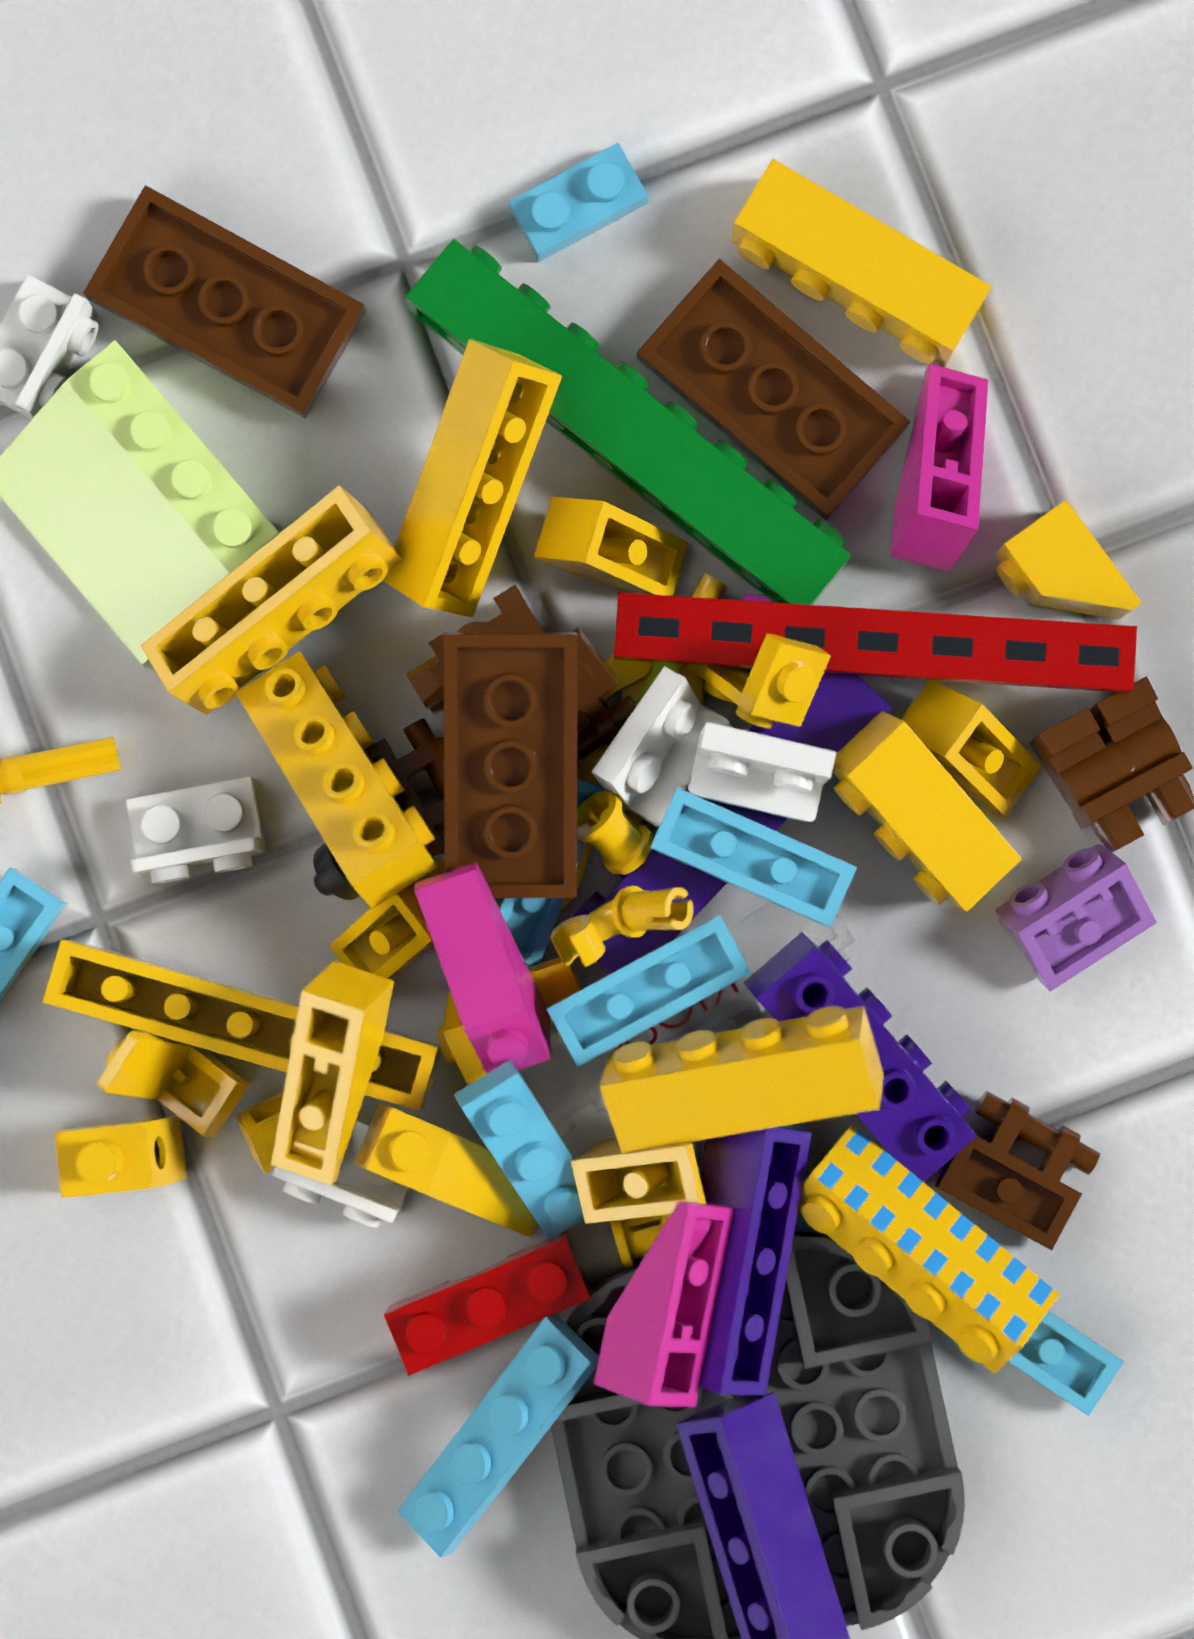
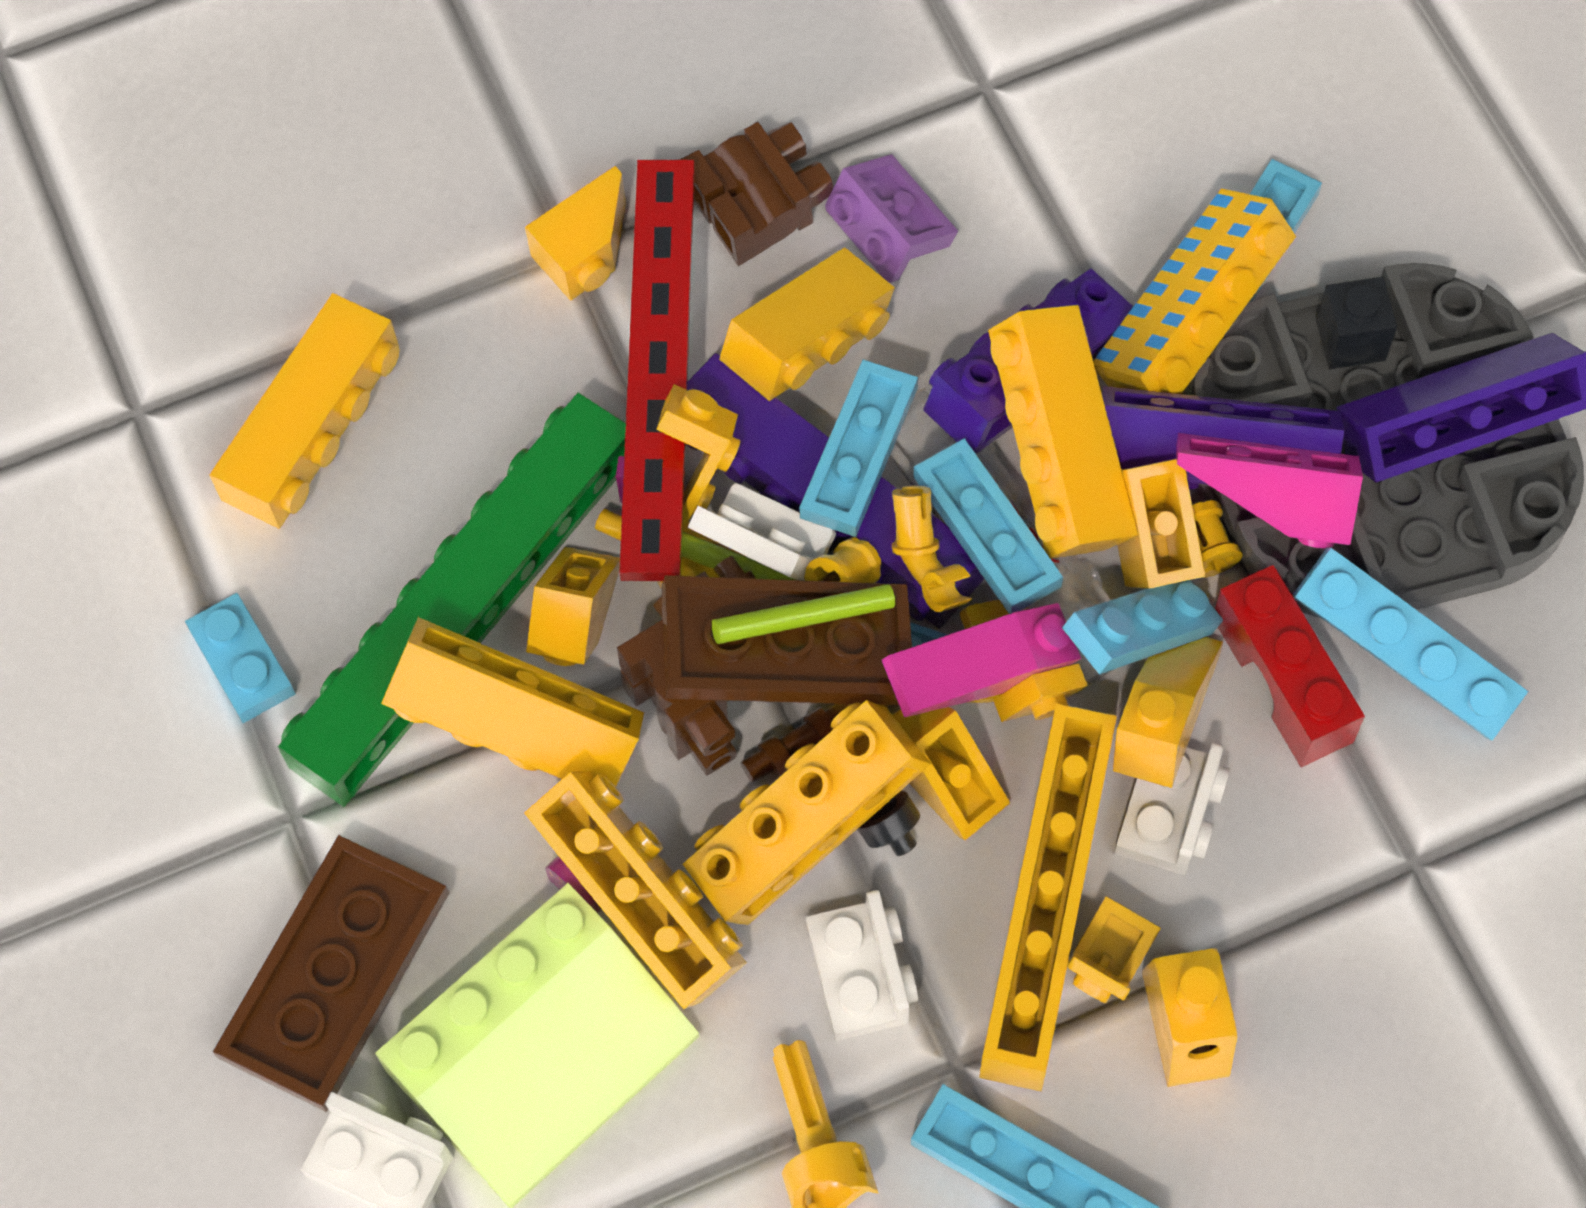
camera: 95 degrees left, 20 degrees down
(259, 1129) = (1146, 870): yellow slope -> none
(329, 1068) = (1088, 781): yellow slope -> none
(530, 781) = (803, 614): none -> lime bar
(760, 772) = (780, 440): white bracket -> none
(772, 389) = (421, 478): reddish brown plate -> none
(884, 1429) = (1356, 322): none -> black brick
(942, 471) = (503, 333): dark pink slope -> none
(972, 746) = (732, 291): yellow slope -> none
(1011, 1189) = (1134, 252): reddish brown plate -> none

